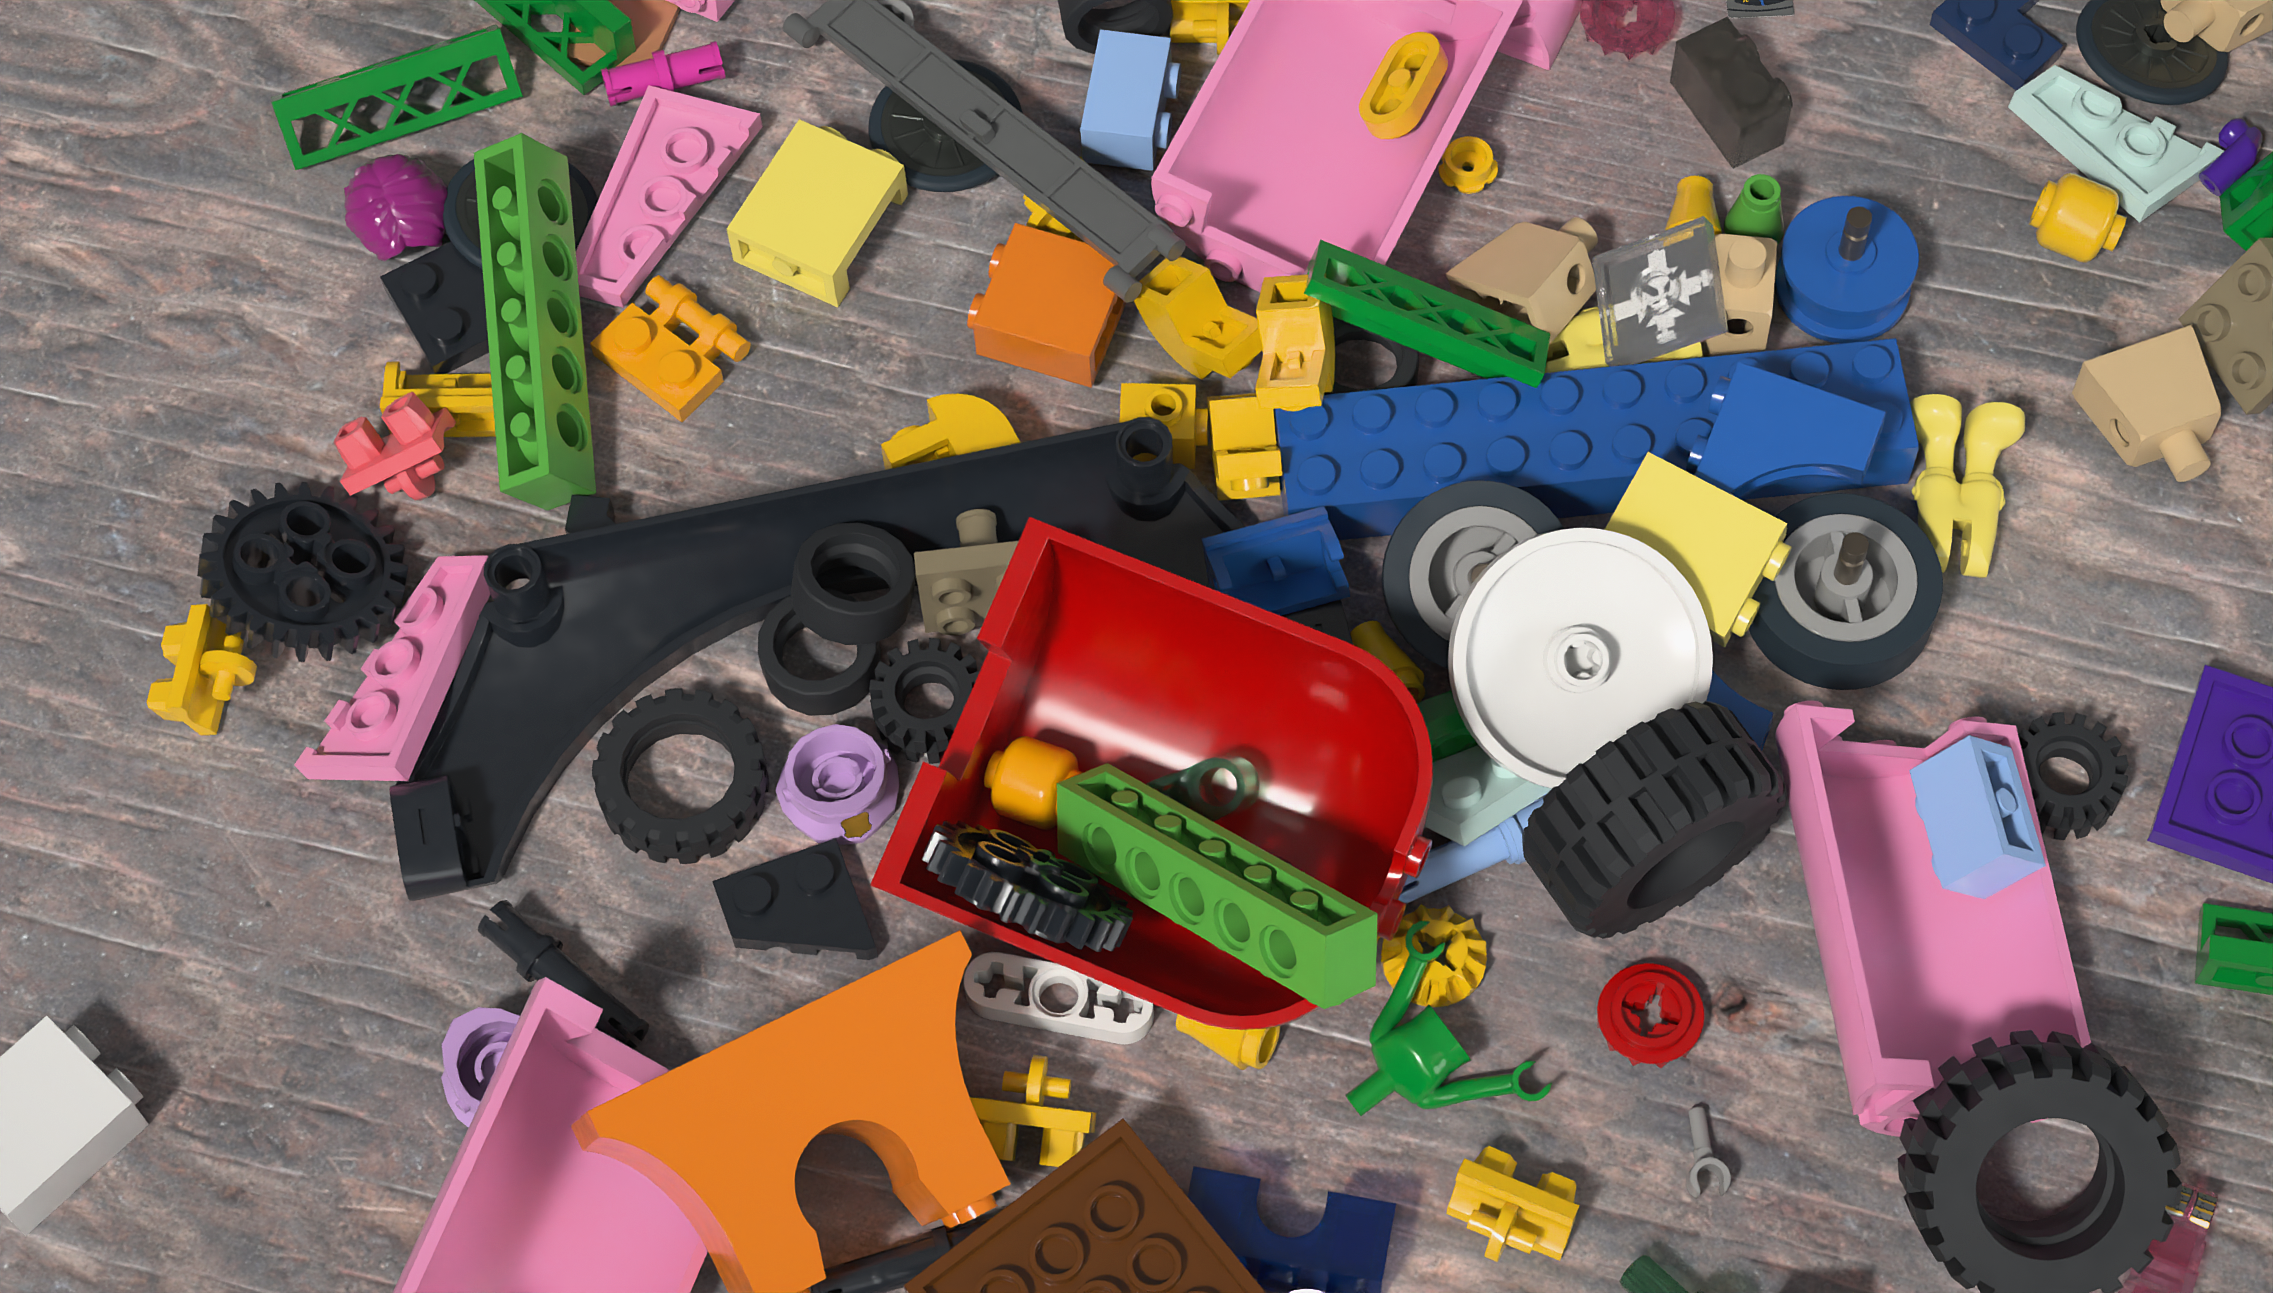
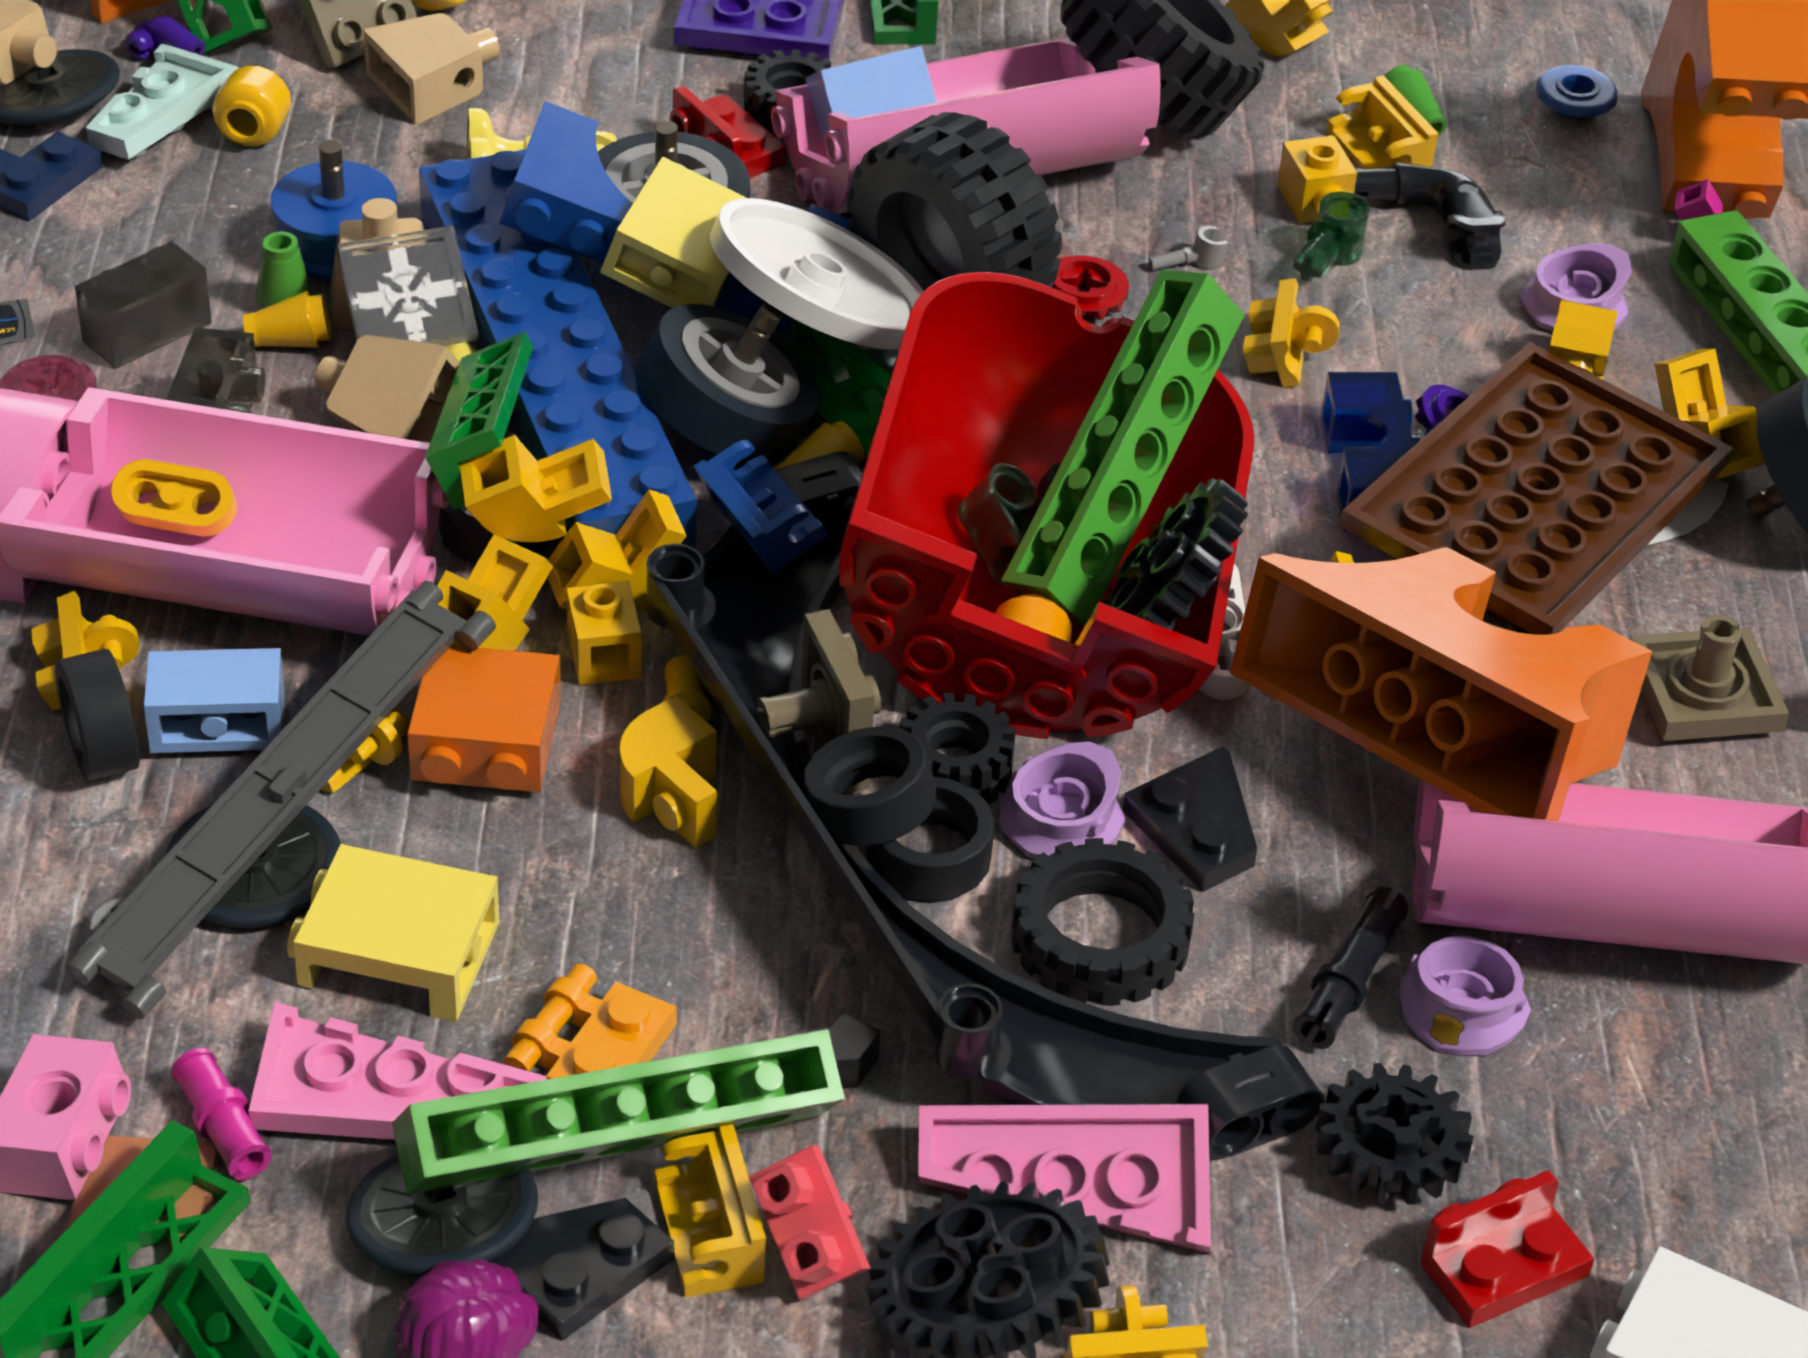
camera: 110 degrees left, 20 degrees down
(208, 1006) = (1503, 1250): none -> red bracket
(372, 965) = (1394, 1133): none -> black gear
(1558, 131) = (219, 371): none -> clear smoke brick
(2001, 682) = (729, 125): none -> red bracket

